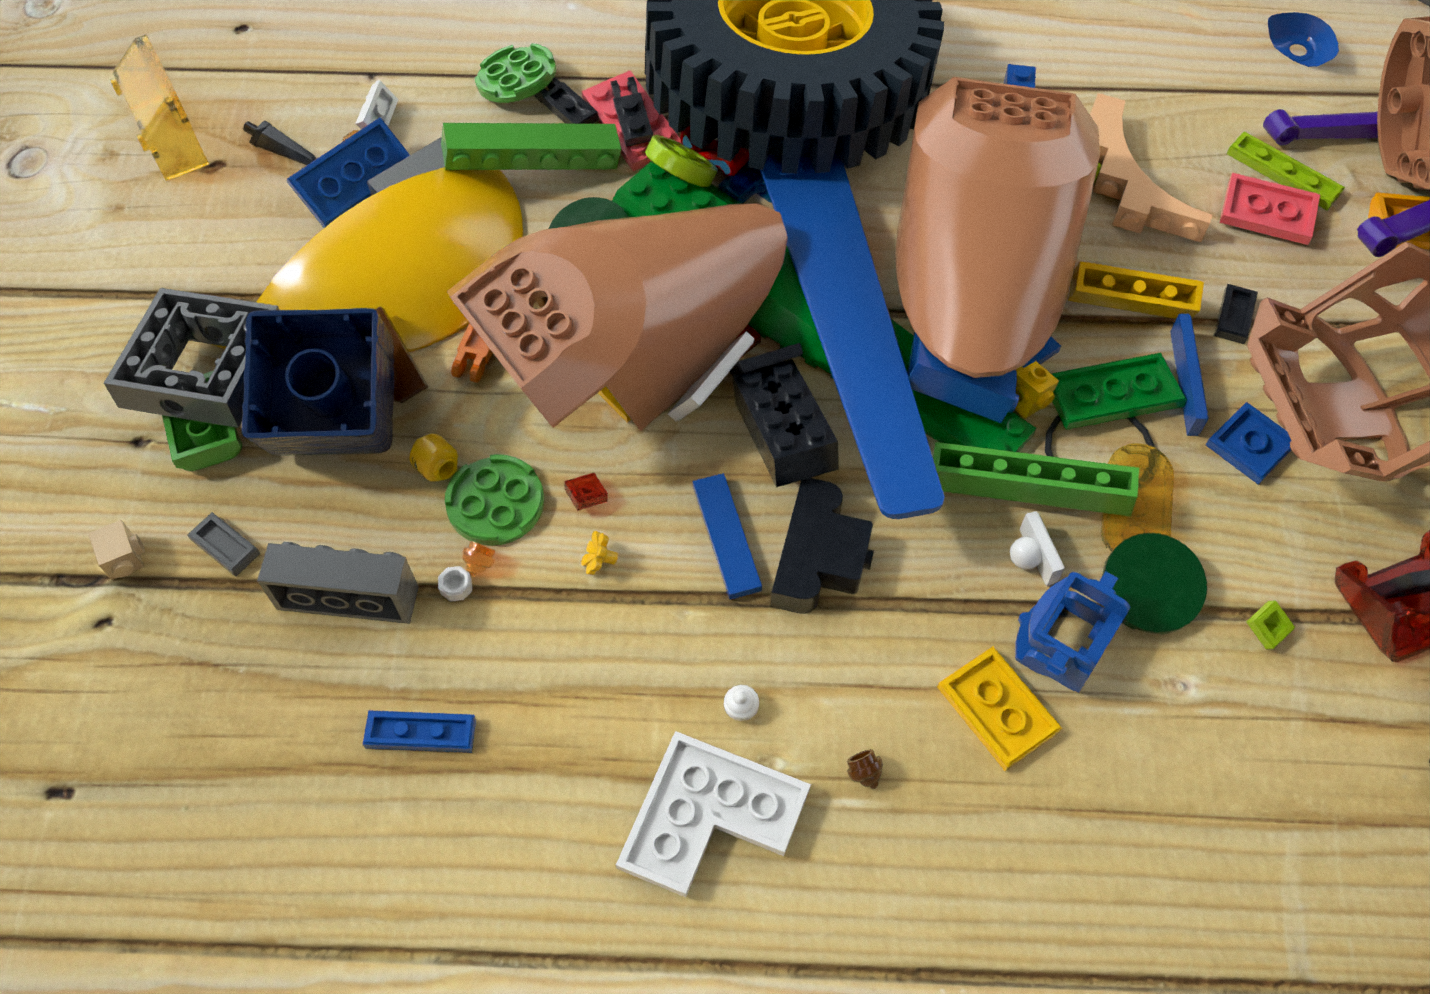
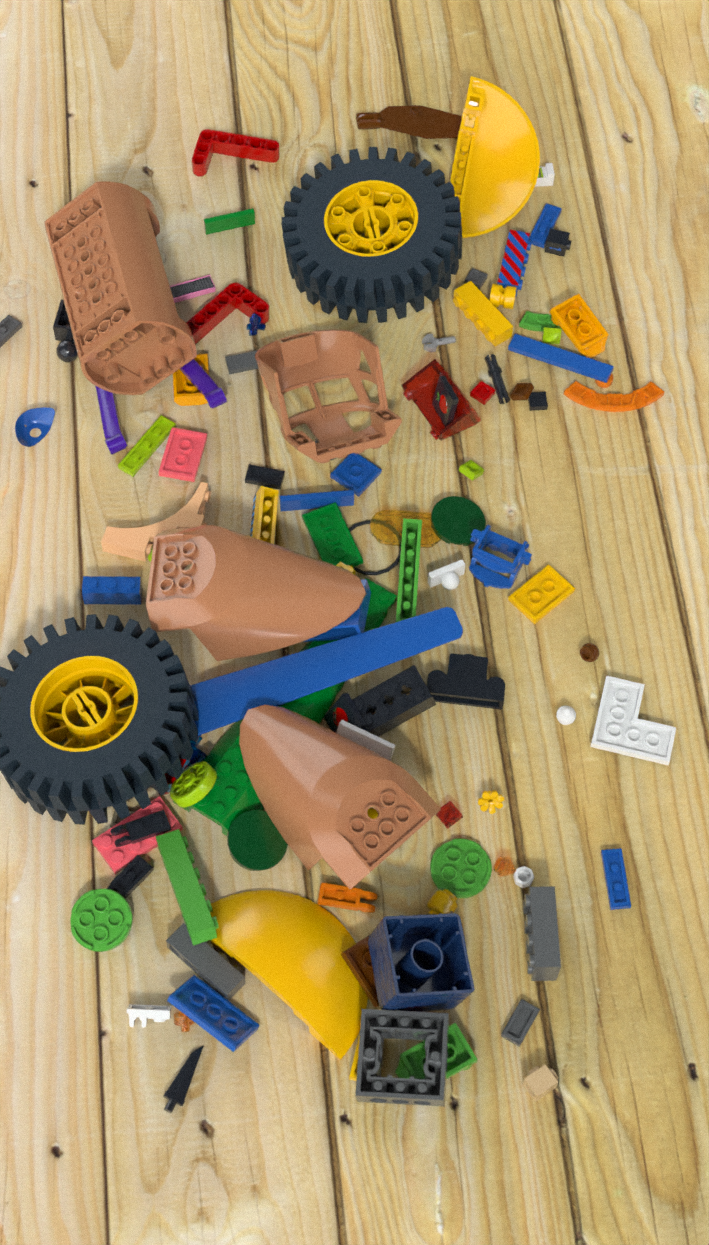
camera: 100 degrees left, 0 degrees up
(157, 110) = (173, 1163): clear yellow windscreen -> none
(727, 536) = (463, 735): blue tile -> none

